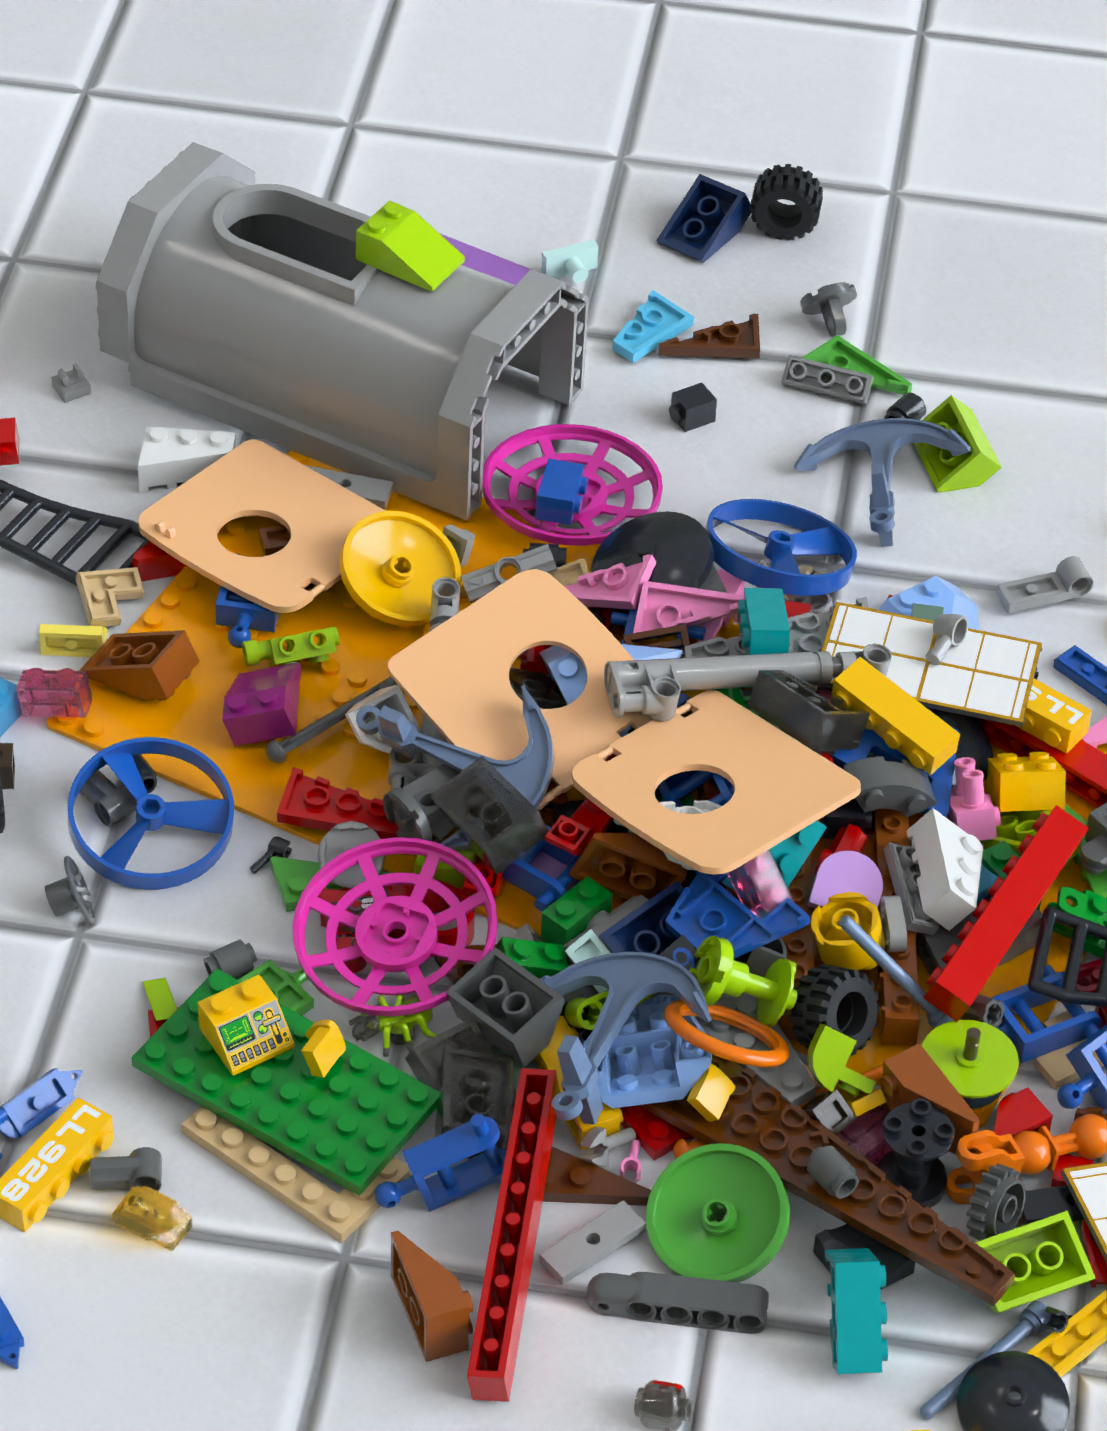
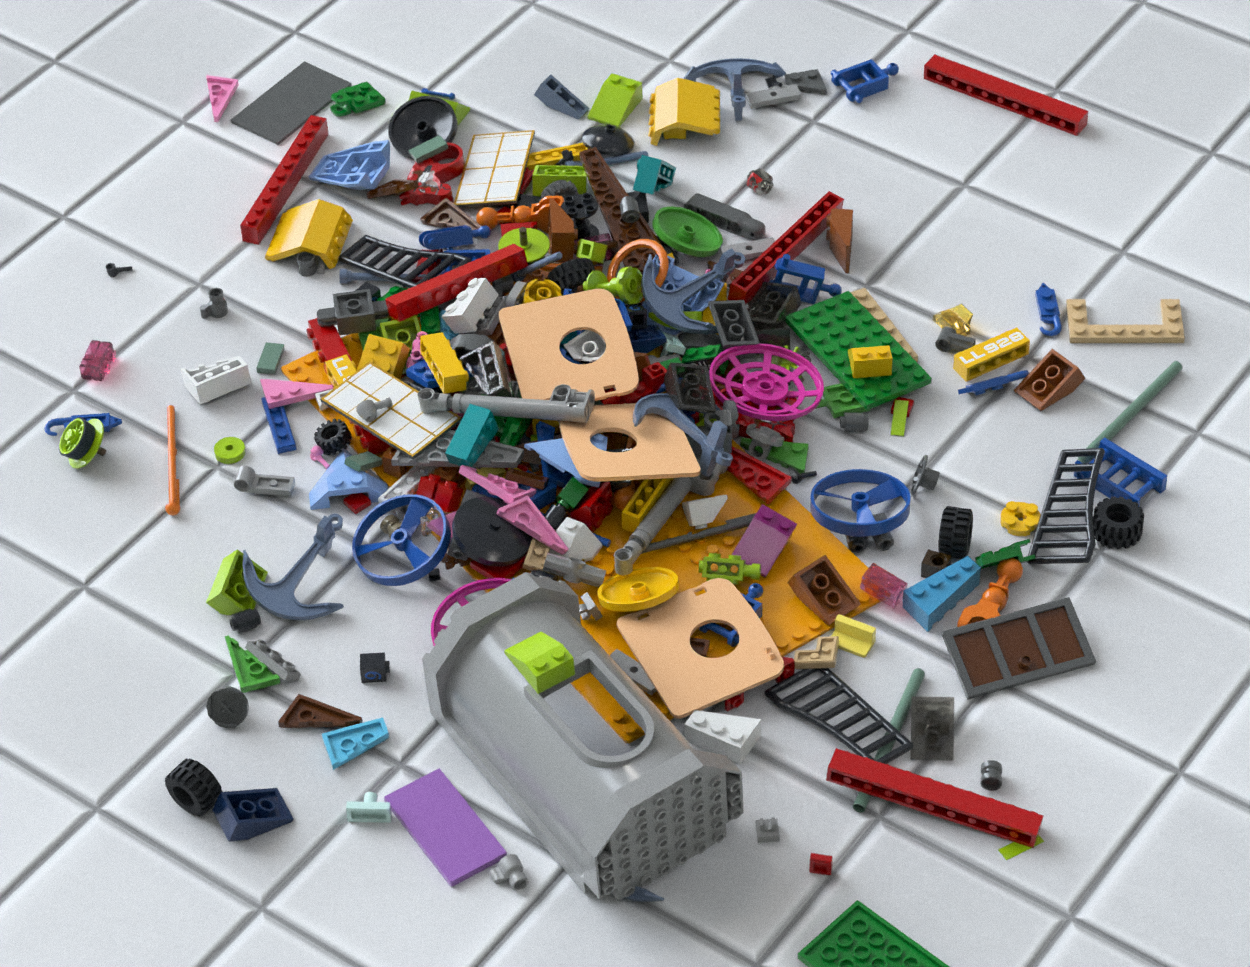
camera: 150 degrees left, 0 degrees up
(323, 1047) = (834, 335): yellow tile -> none

